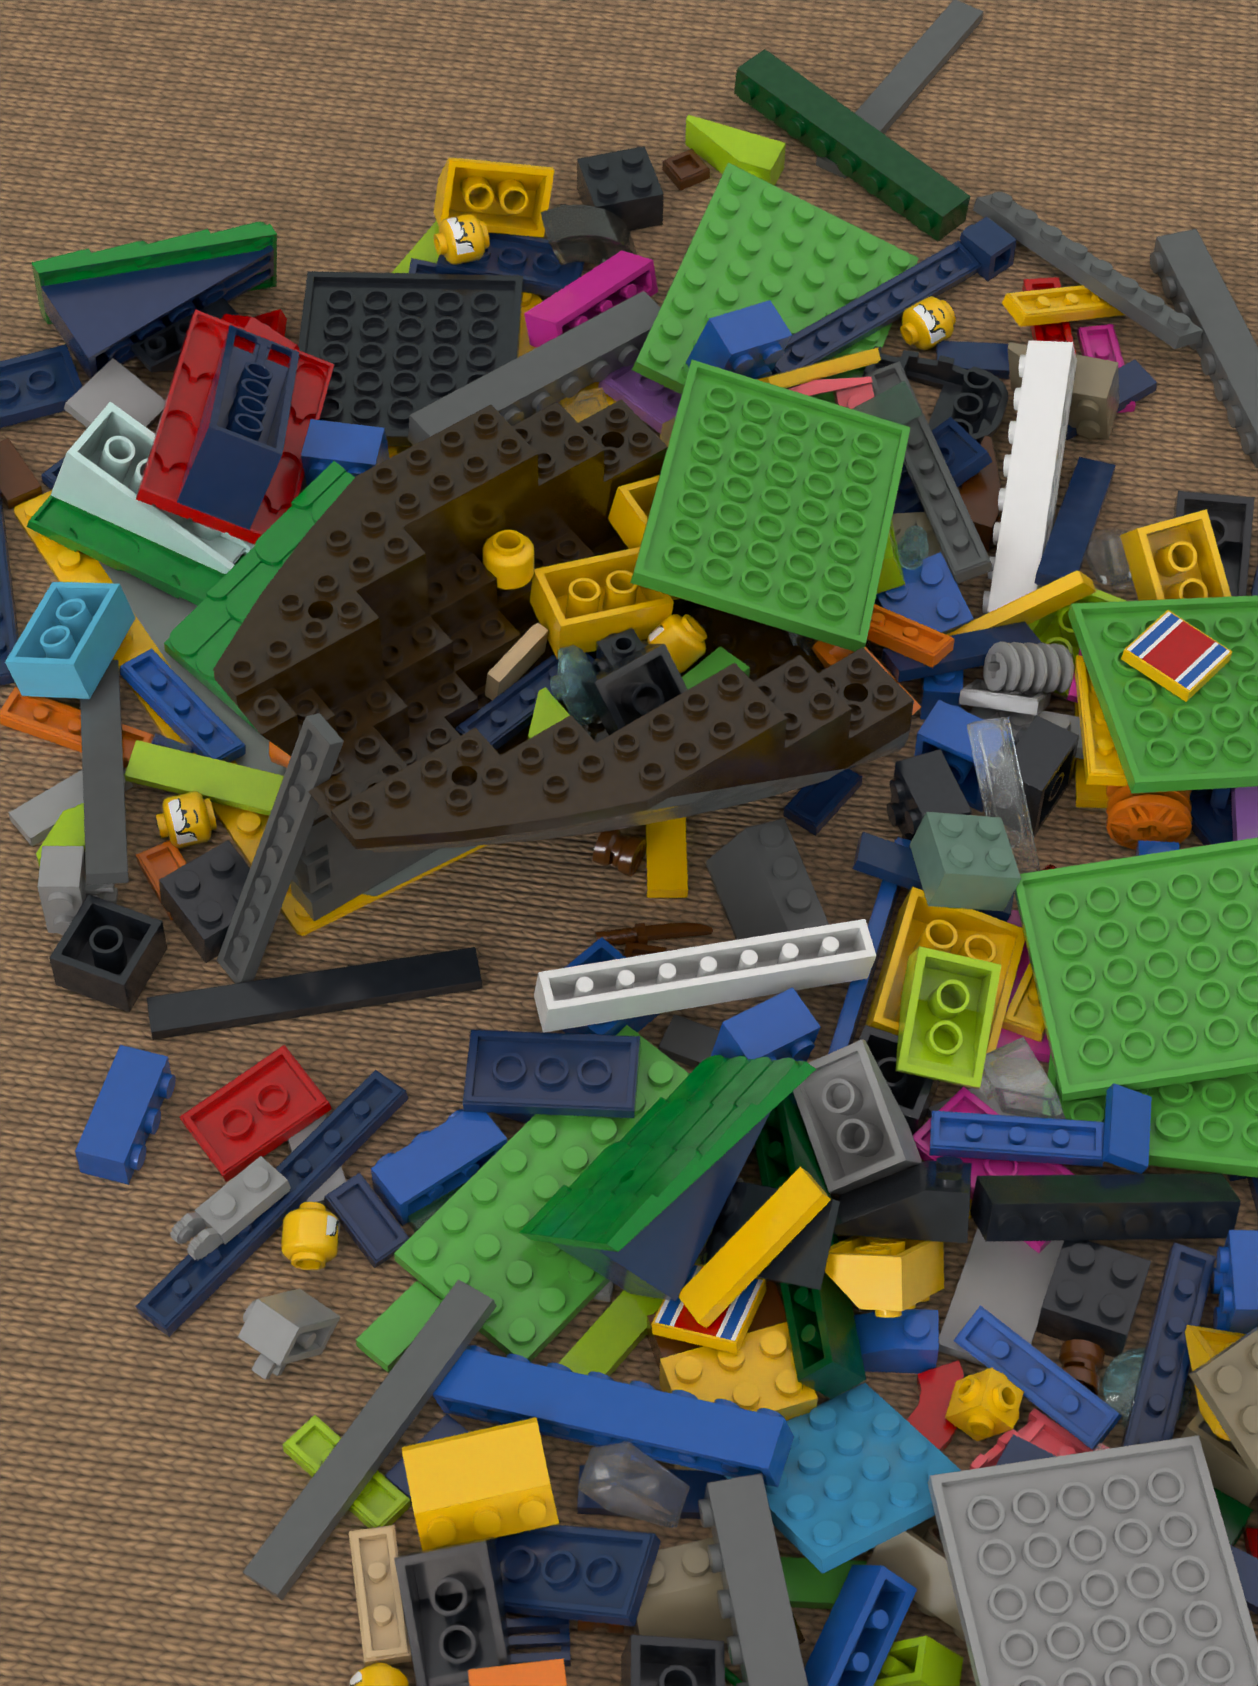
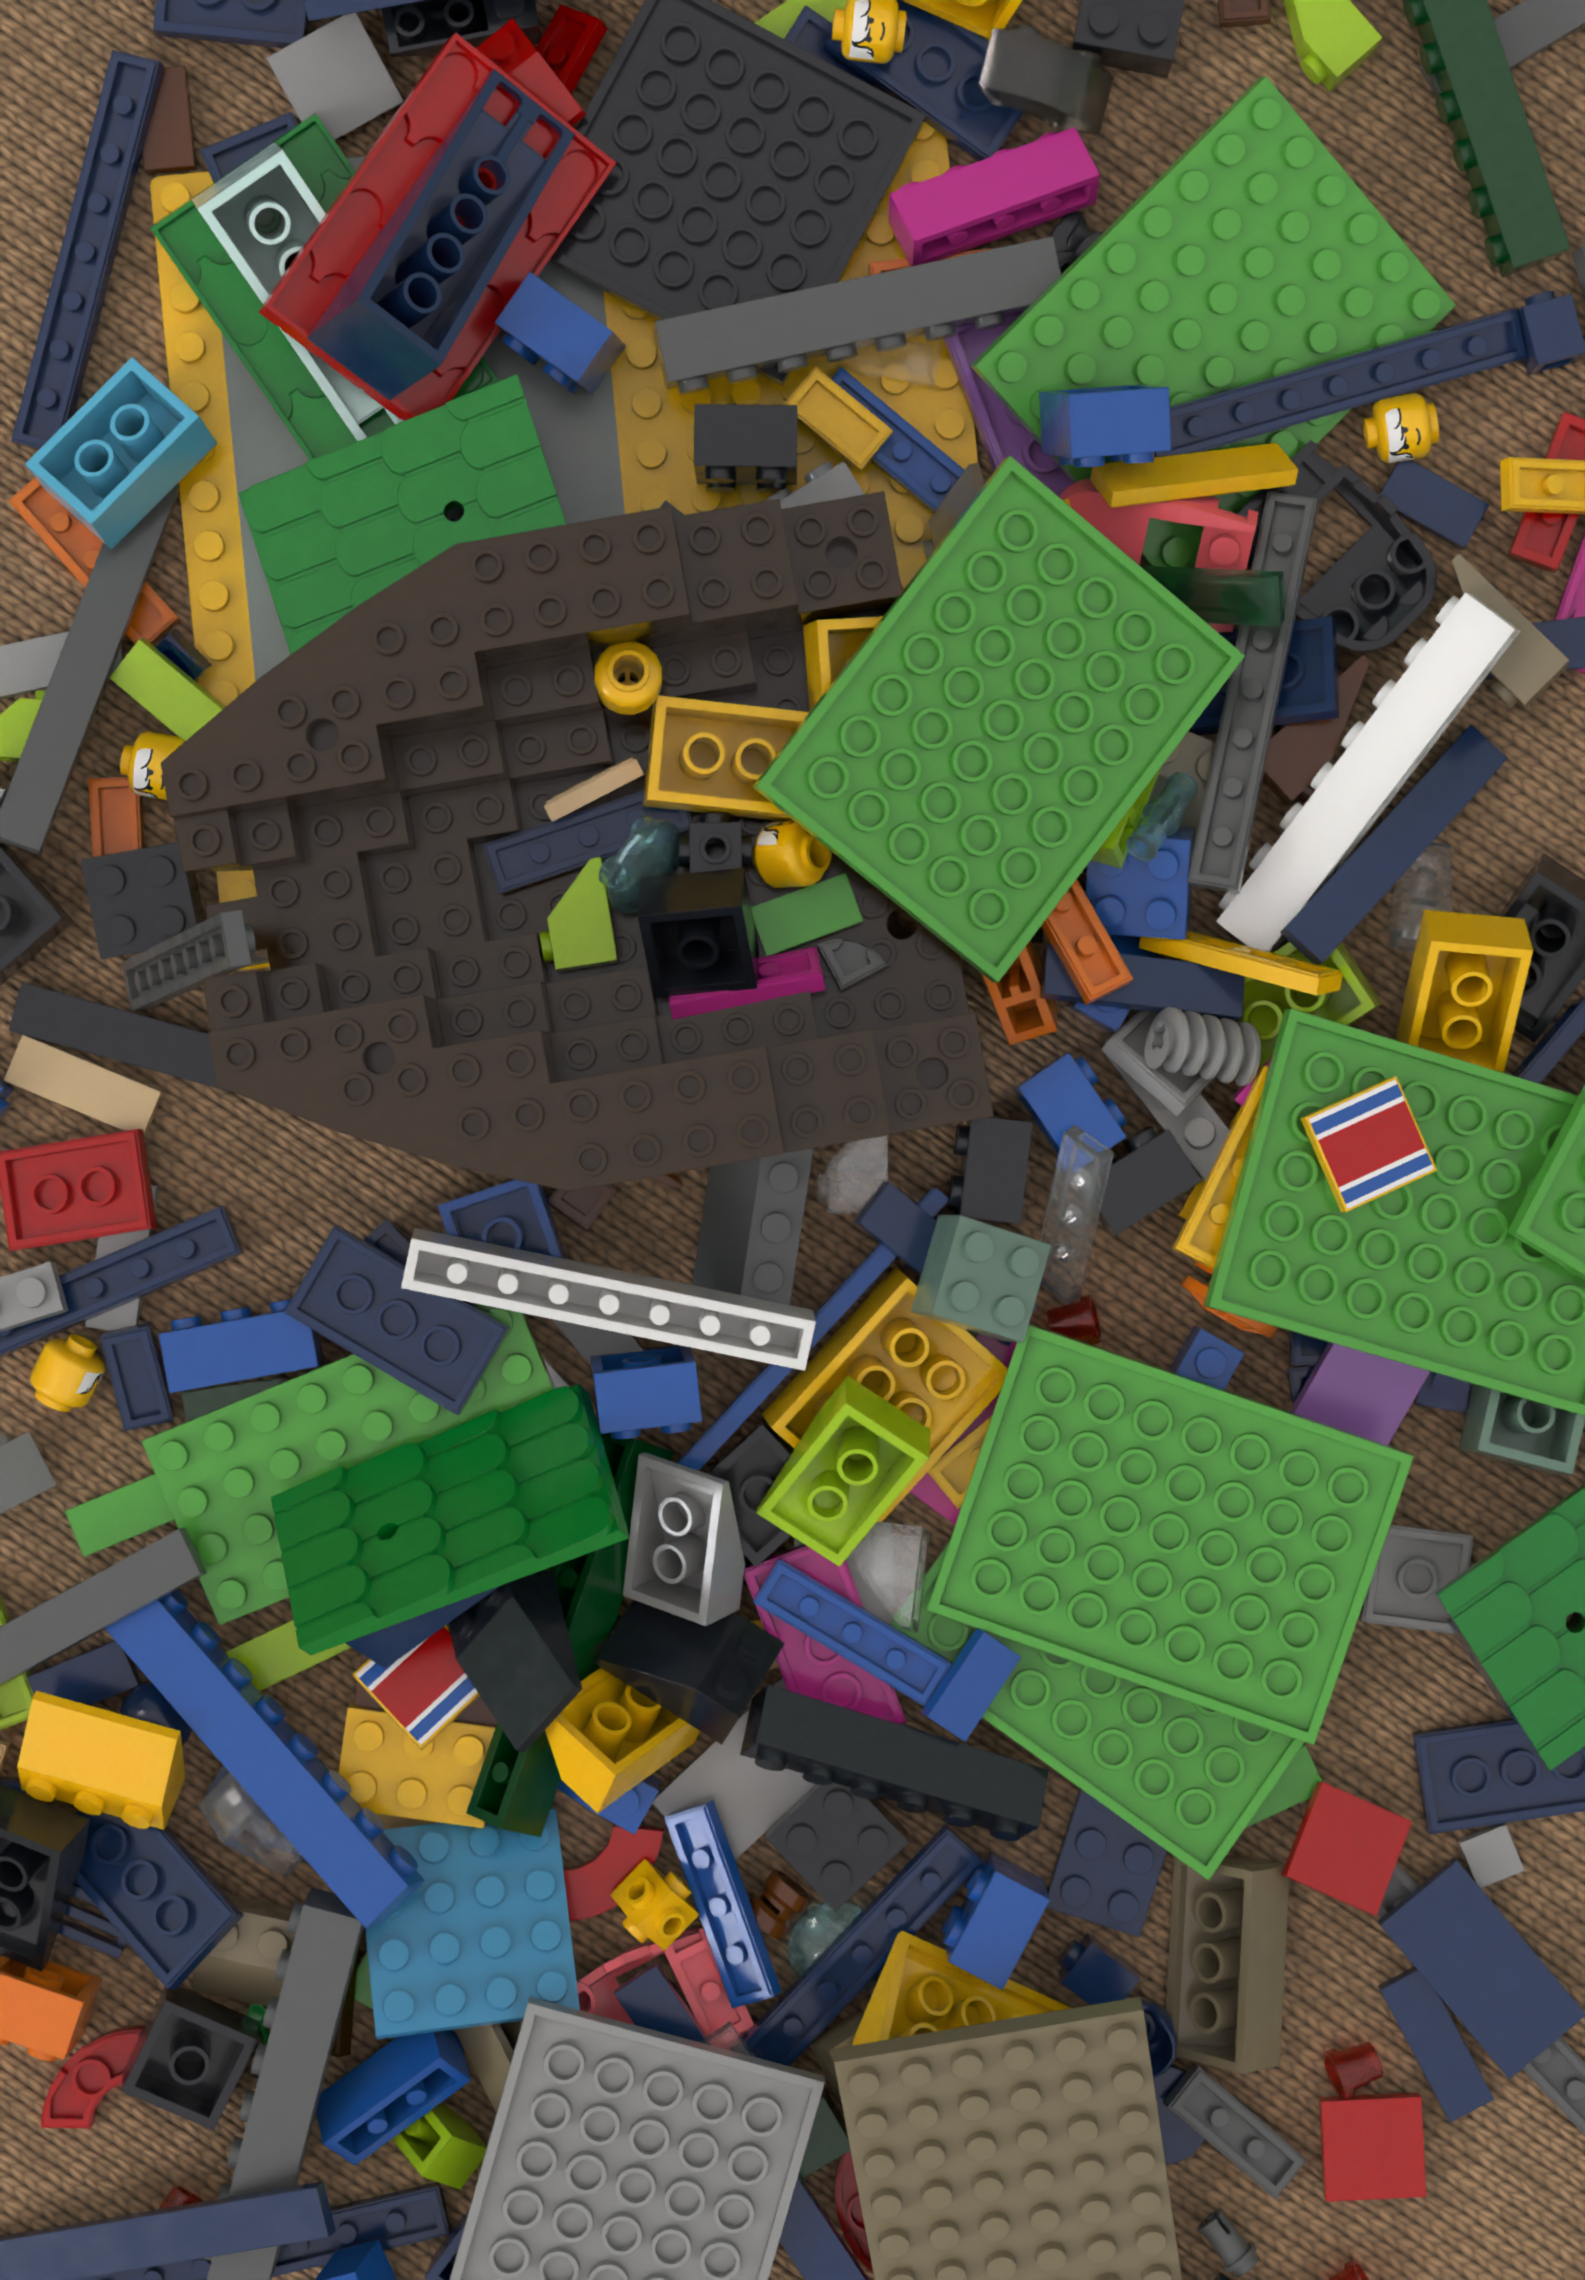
camera: 30 degrees right, 35 degrees up
(181, 708) = (219, 595): blue tile -> none
(222, 1047) = (83, 1085): none -> tan tile
(753, 1247) = (479, 1675): yellow tile -> none
(833, 862) = (854, 1175): none -> clear slope

